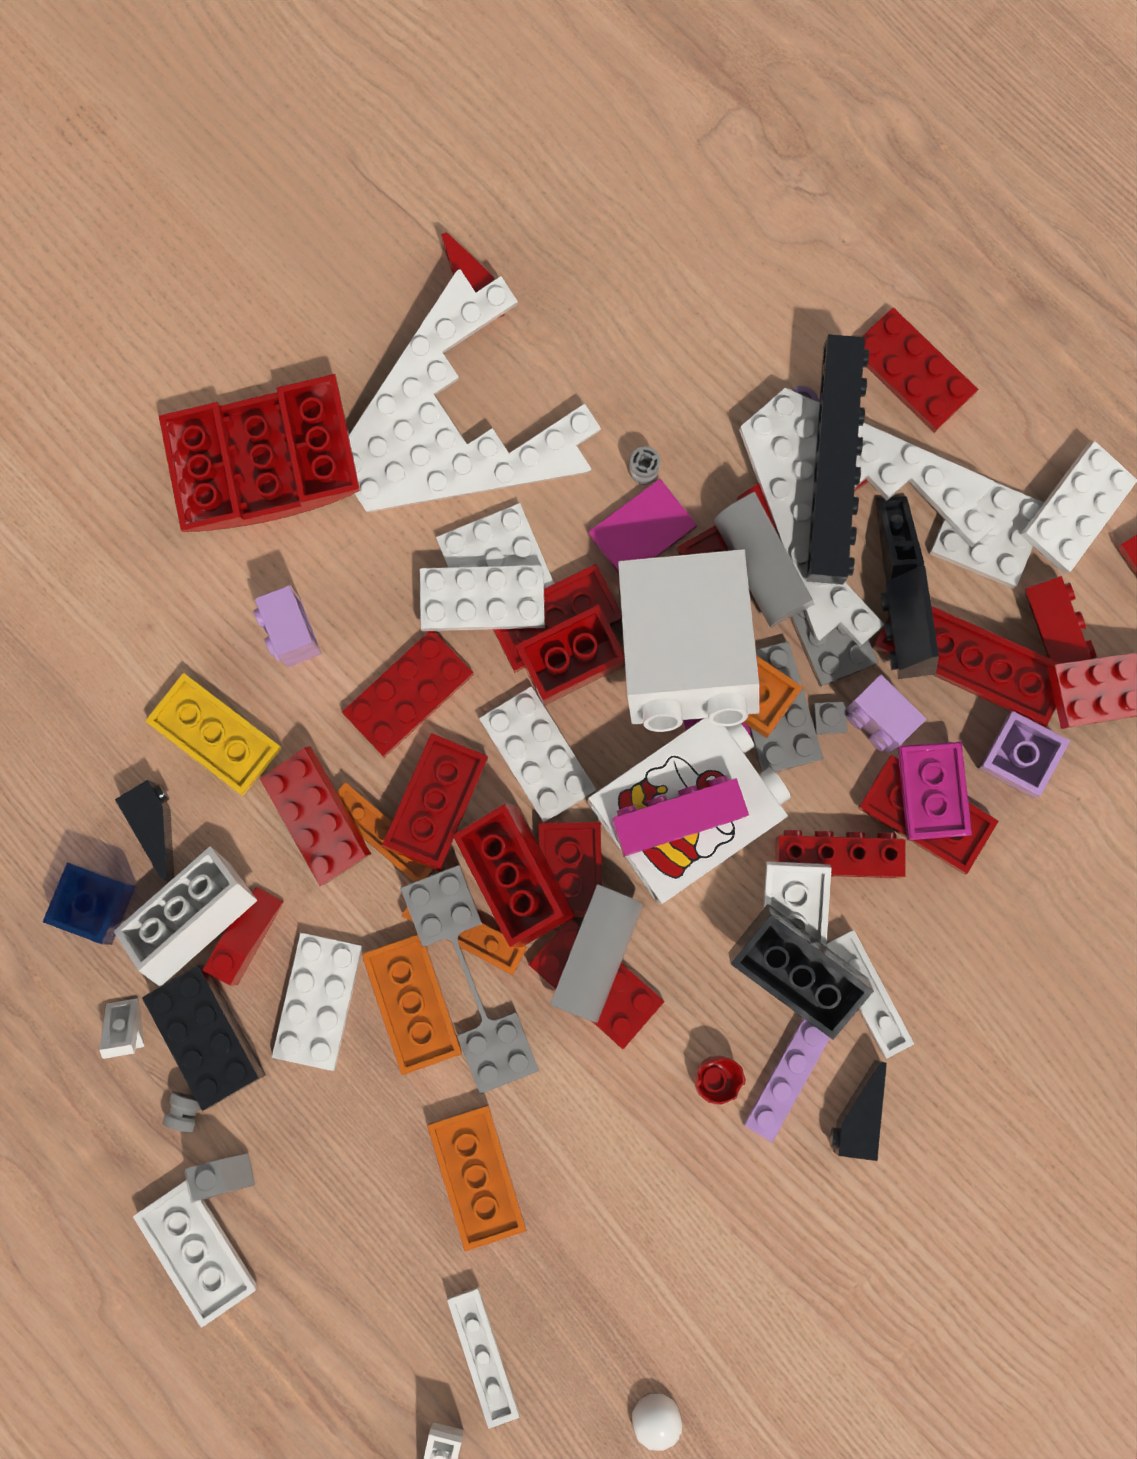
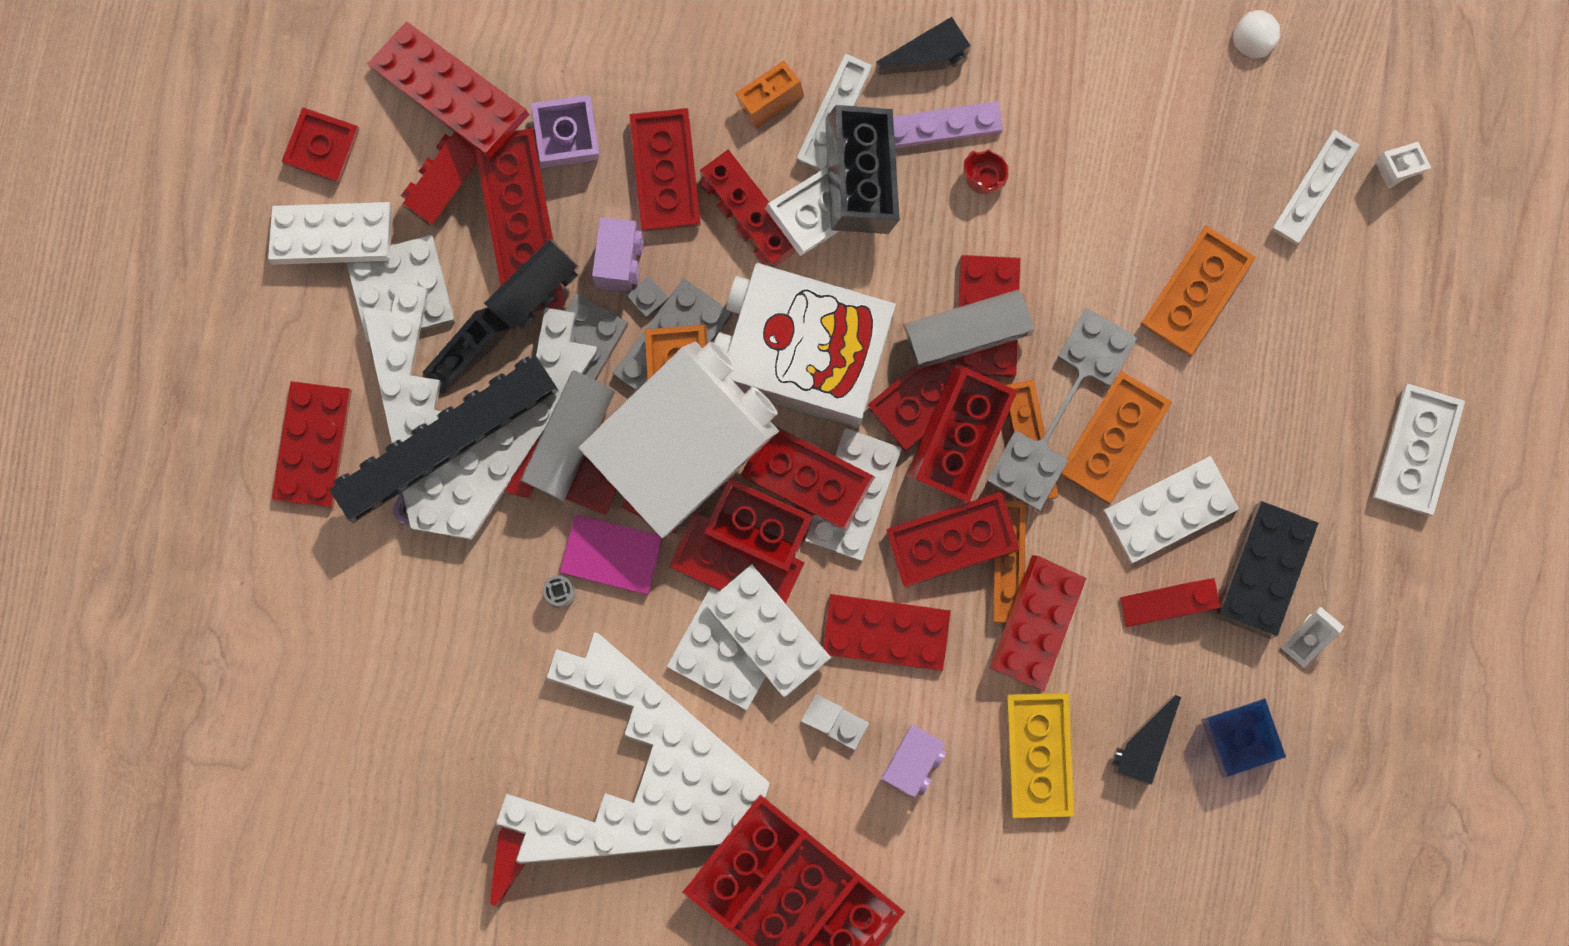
camera: 130 degrees left, 0 degrees up
(181, 1112) = (1332, 541): light grey wheel -> none
(184, 916) = (1192, 655): white brick -> none
(219, 1177) = (1355, 474): light grey slope -> none
(371, 598) = (835, 722): none -> white slope
(577, 726) = (809, 478): none -> red plate
(679, 817) = (822, 337): dark pink brick -> none
(927, 951) = (770, 94): none -> orange hinge
(934, 791) = (645, 176): dark pink tile -> none

